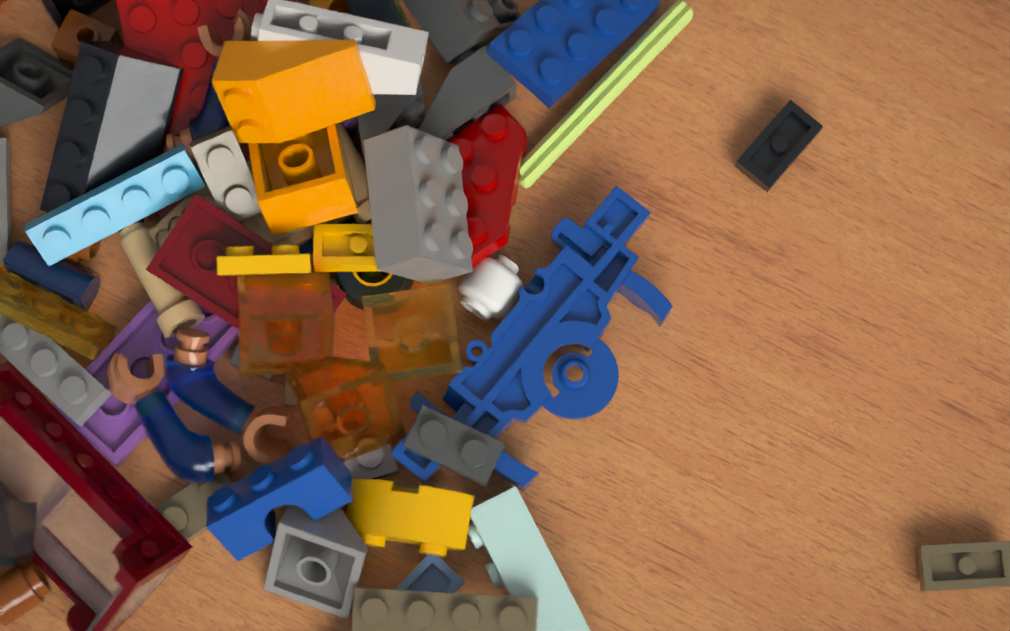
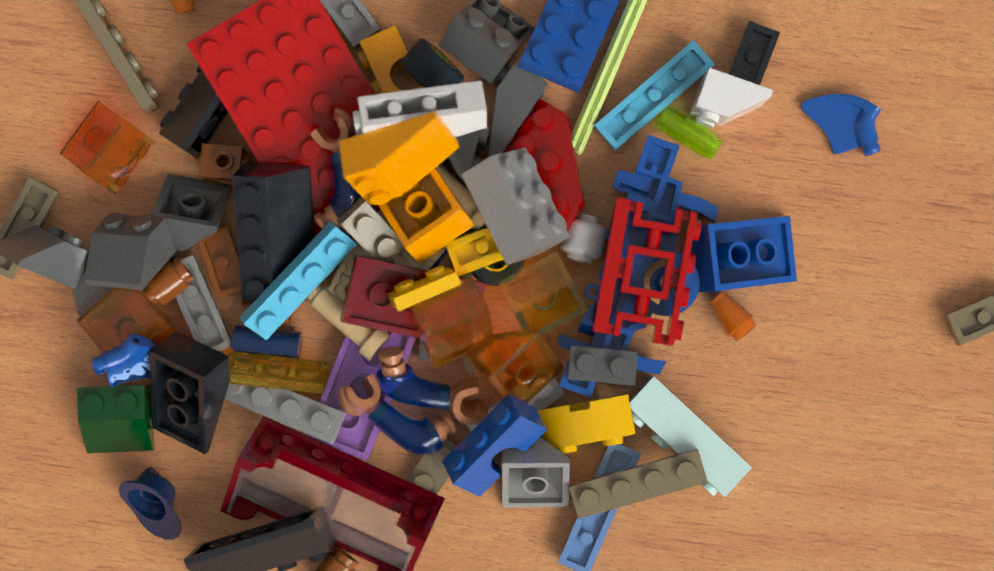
camera: 15 degrees left, 10 degrees up
(33, 159) = (222, 263): none -> dark orange plate
(520, 329) = (619, 267): none -> red fence
(641, 148) = (654, 95): none -> medium azure plate
(644, 451) = (733, 317): none -> orange cone
(669, 208) = (689, 133): none -> clear neon green piece
(684, 376) = (745, 254): none -> blue slope
(730, 178) = (726, 98): none -> white slope
(869, 263) = (846, 121): none -> blue arm

